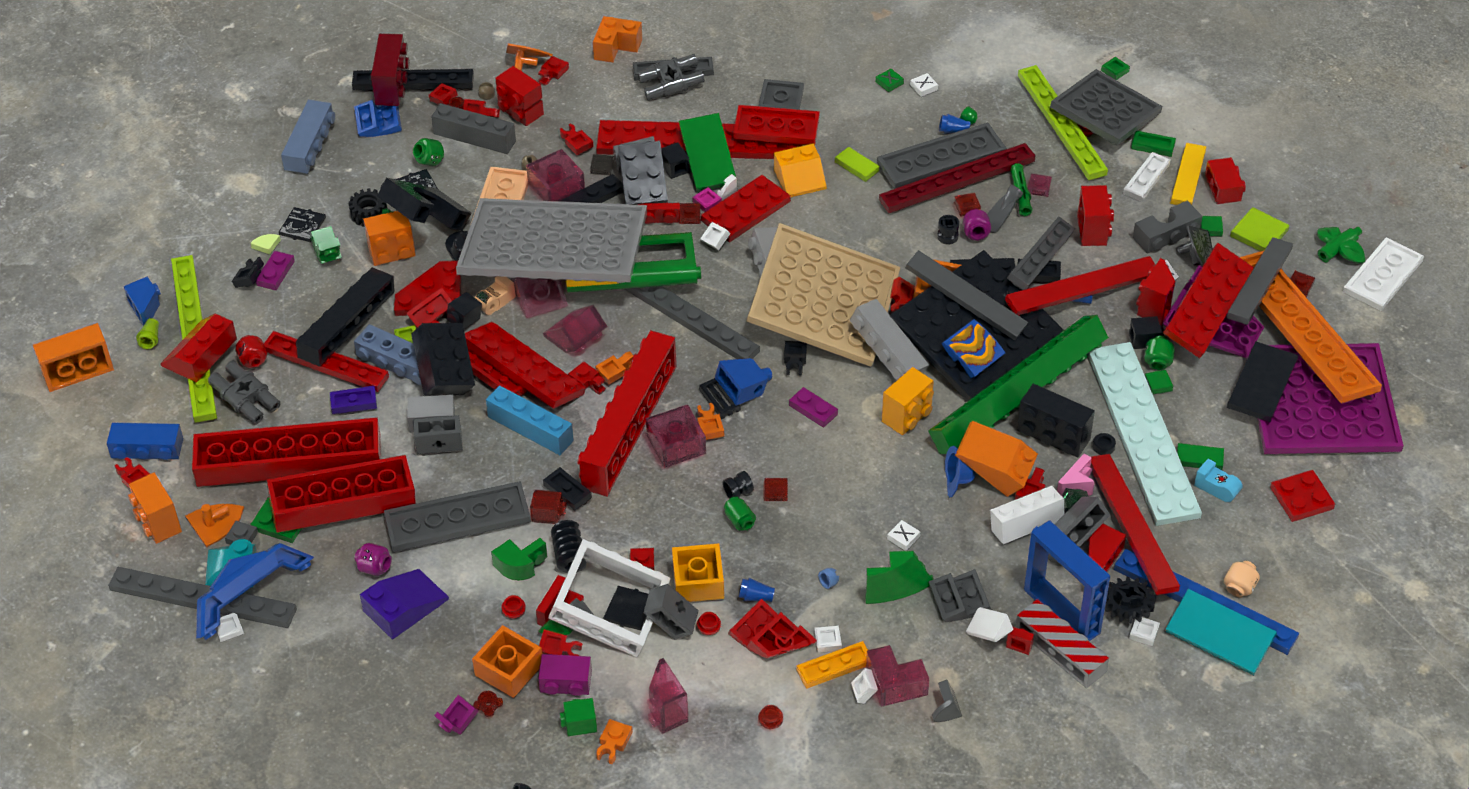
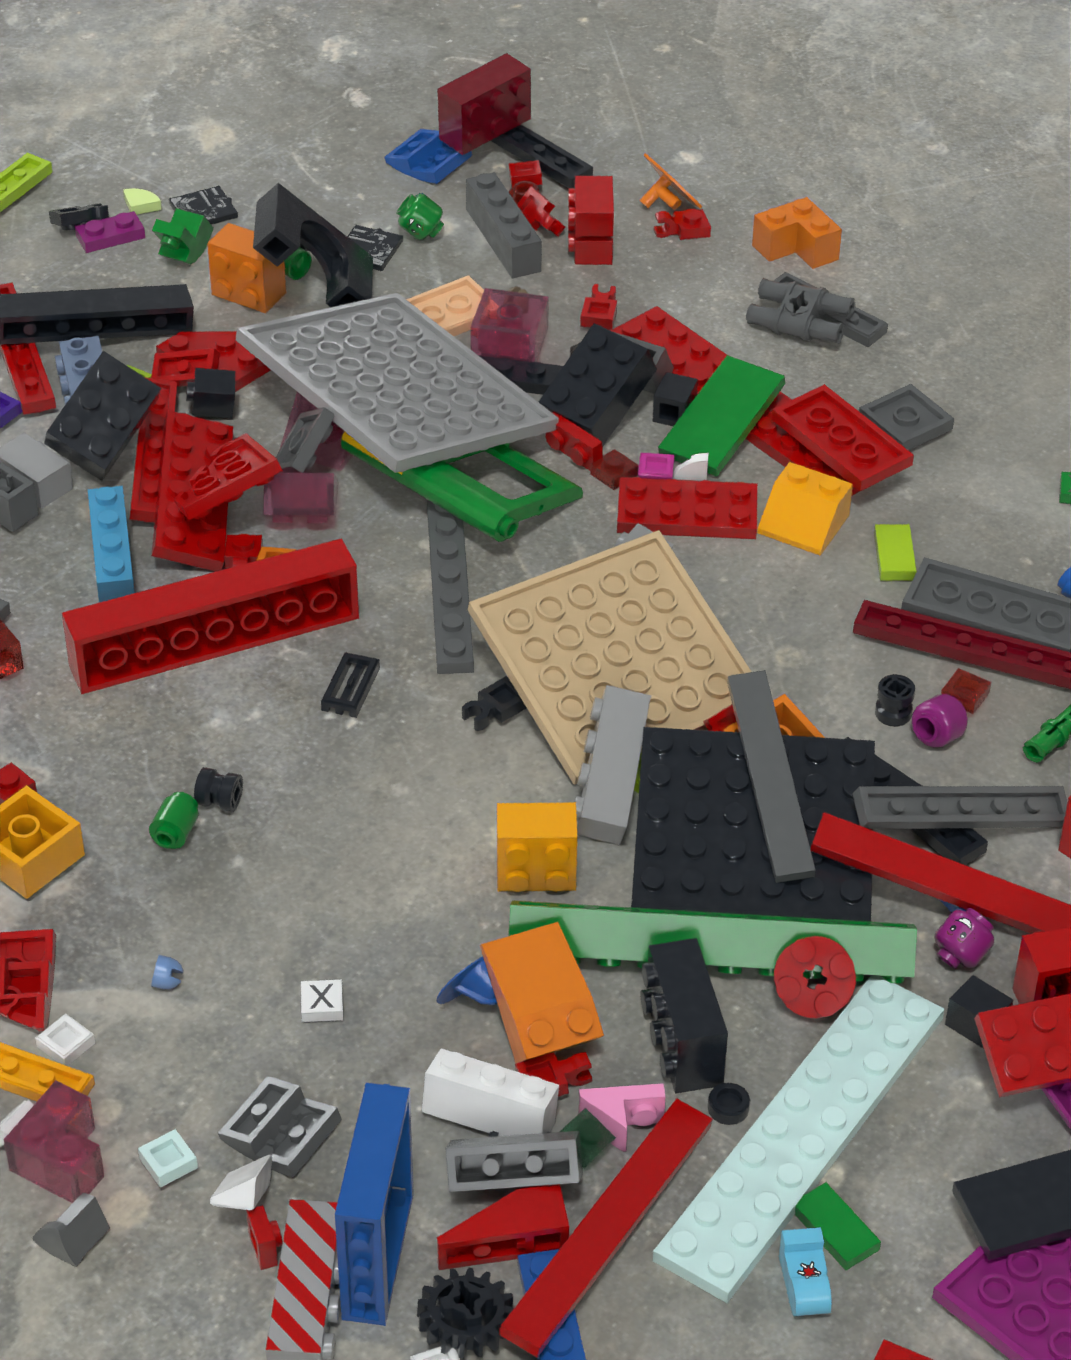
camera: 45 degrees right, 5 degrees down
(308, 136) = (324, 124): sand blue brick -> none
(496, 295) = (273, 404): light nougat leg -> none
(546, 341) = (233, 470): none -> red plate
(551, 302) = (302, 441): none -> dark grey plate
(572, 491) = (44, 650): black plate -> none
(676, 436) = (226, 680): clear pink brick -> none
(710, 423) = (292, 703): orange plate -> none
(715, 236) = (600, 510): white plate -> none
(742, 379) = (394, 680): blue torso -> none
(755, 591) = (63, 916): blue cone -> none
(775, 489) = (260, 830): clear red tile -> none
(813, 407) = (437, 776): magenta plate -> none
(901, 579) = (220, 1032): green slope -> none
(940, 644) = (167, 1158): none -> light aqua plate
(973, 348) = (696, 845): slope -> none
(1003, 208) = (1002, 727): dark grey piece -> none
(1088, 366) = (793, 987): none -> red plate
(1105, 306) = (964, 938): none -> magenta head
(1159, 353) = (958, 1052): green head -> none
(1159, 382) = (914, 1088): green tile -> none

